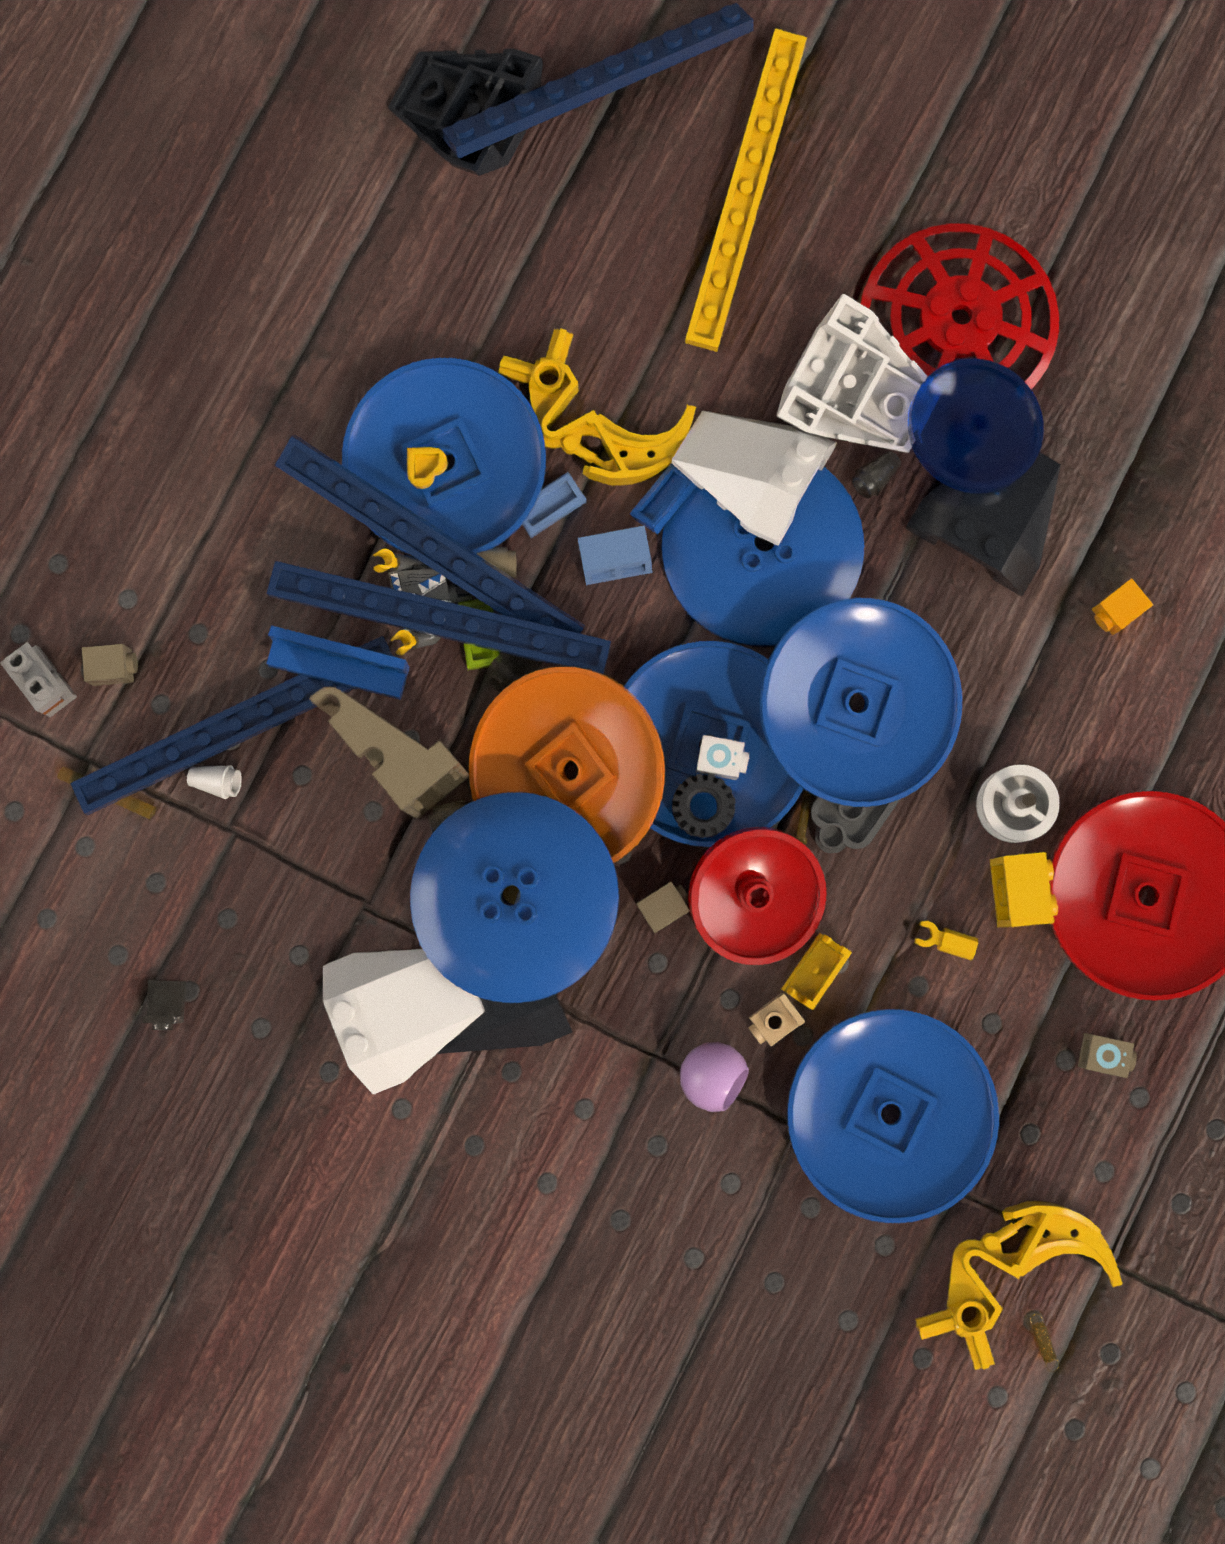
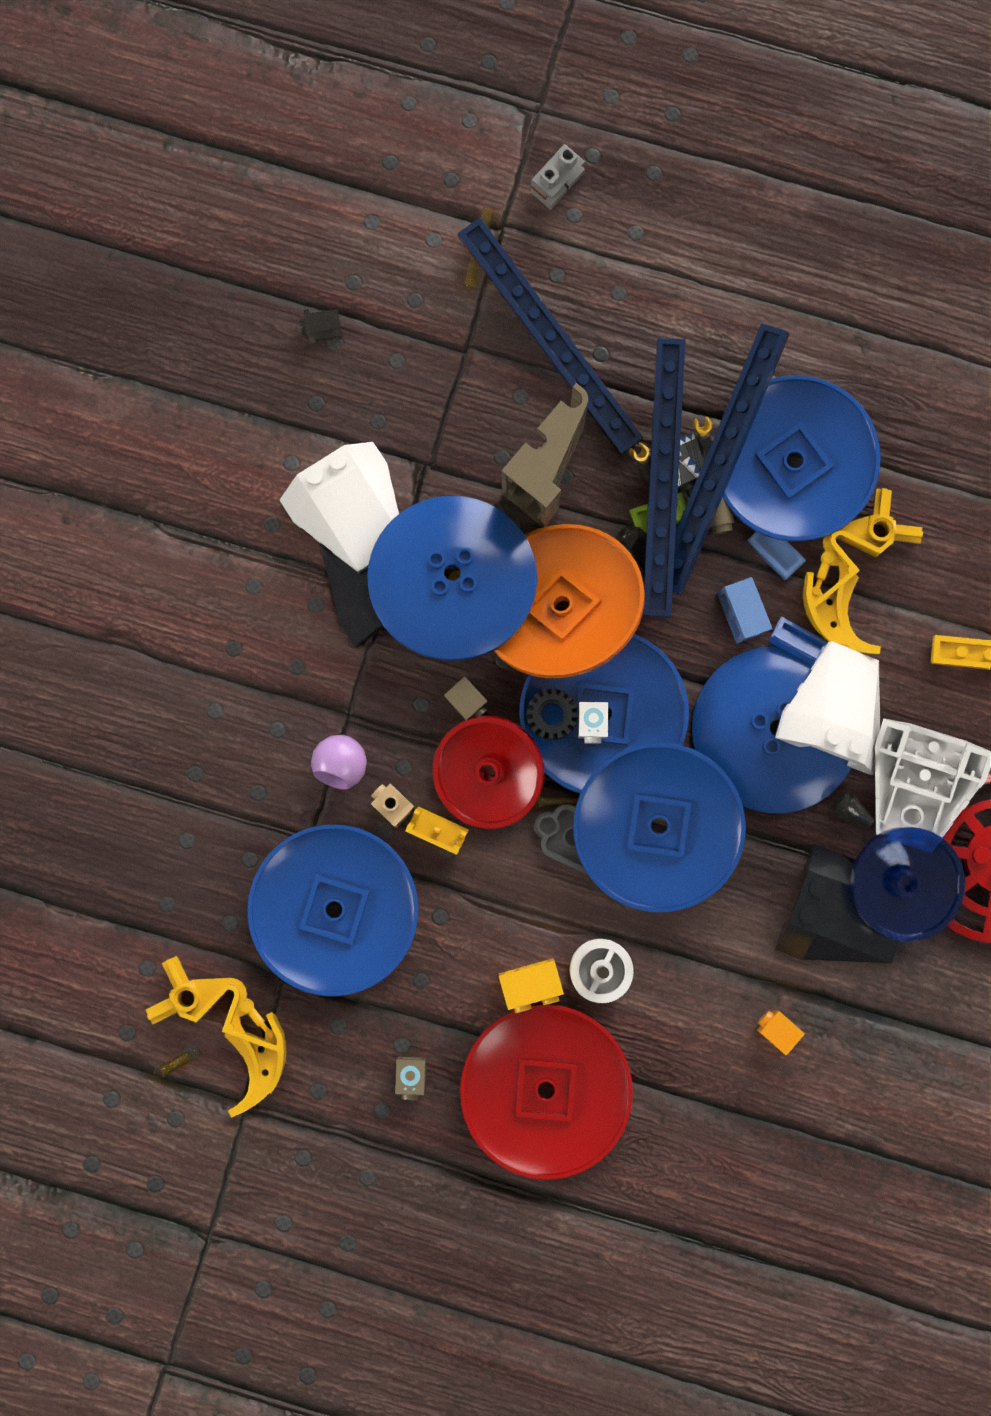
camera: 80 degrees right, 0 degrees up
(109, 664) = (579, 228): dark tan brick -> none
(216, 780) = (503, 330): white cone -> none
(337, 662) = (613, 405): blue fence -> none
(424, 465) = (786, 442): yellow tile -> none
(949, 941) = (480, 935): yellow bar -> none

